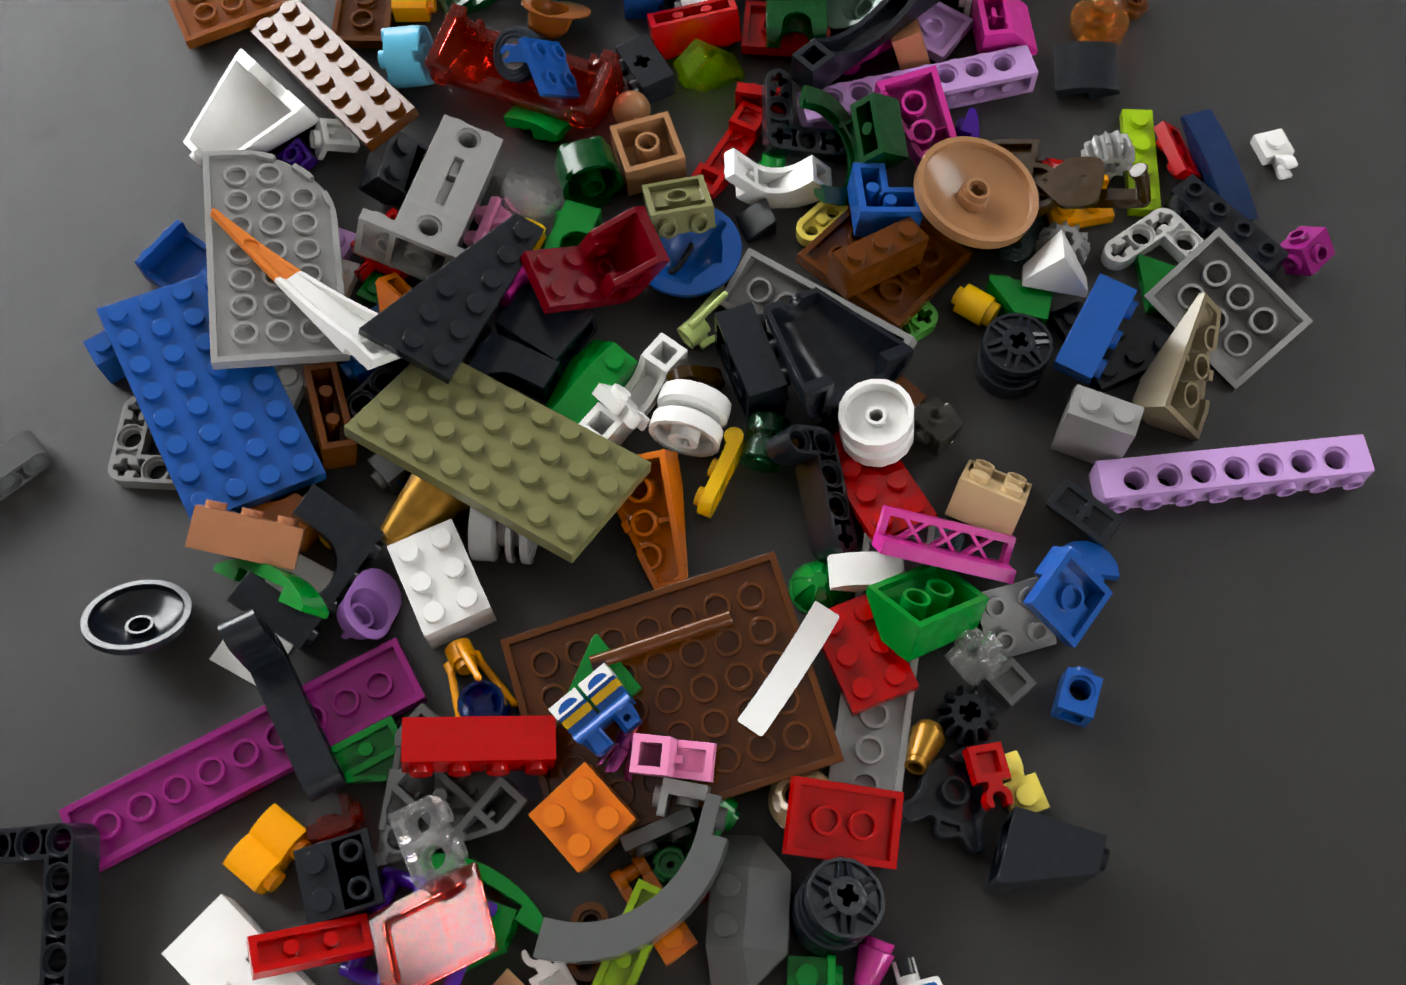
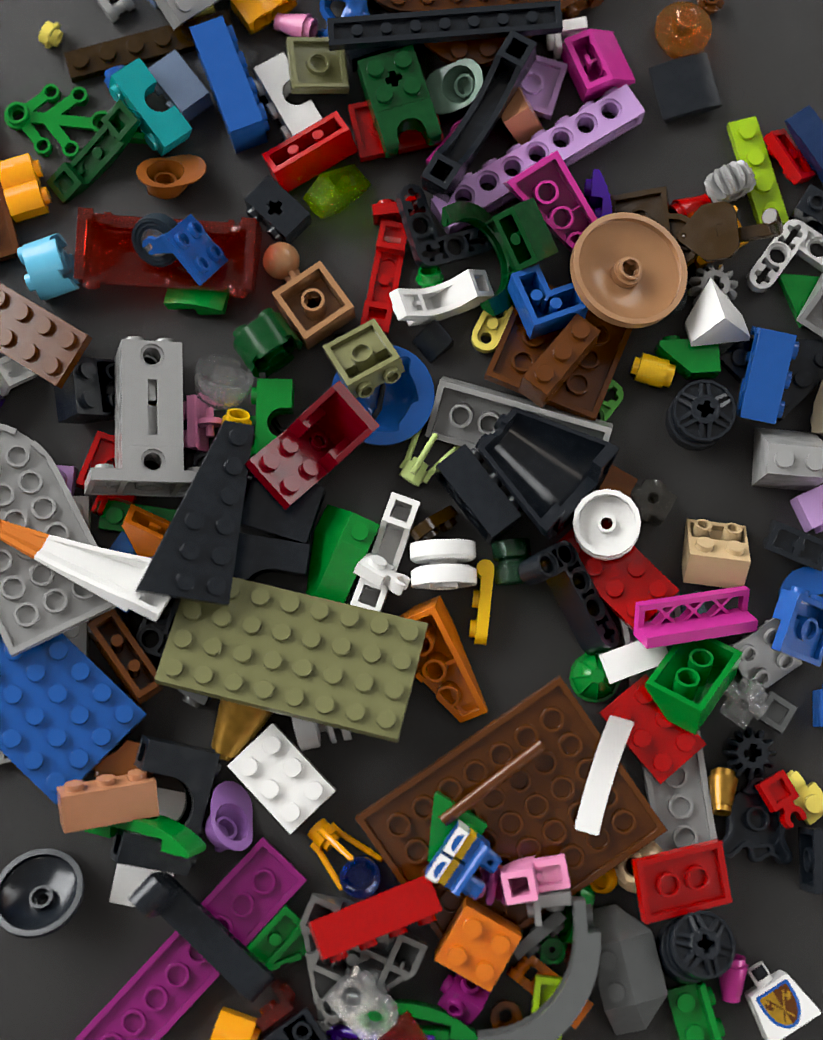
camera: 20 degrees left, 15 degrees up
(549, 879) = (462, 998): none -> magenta brick
(755, 804) = (606, 882): none -> light orange plate

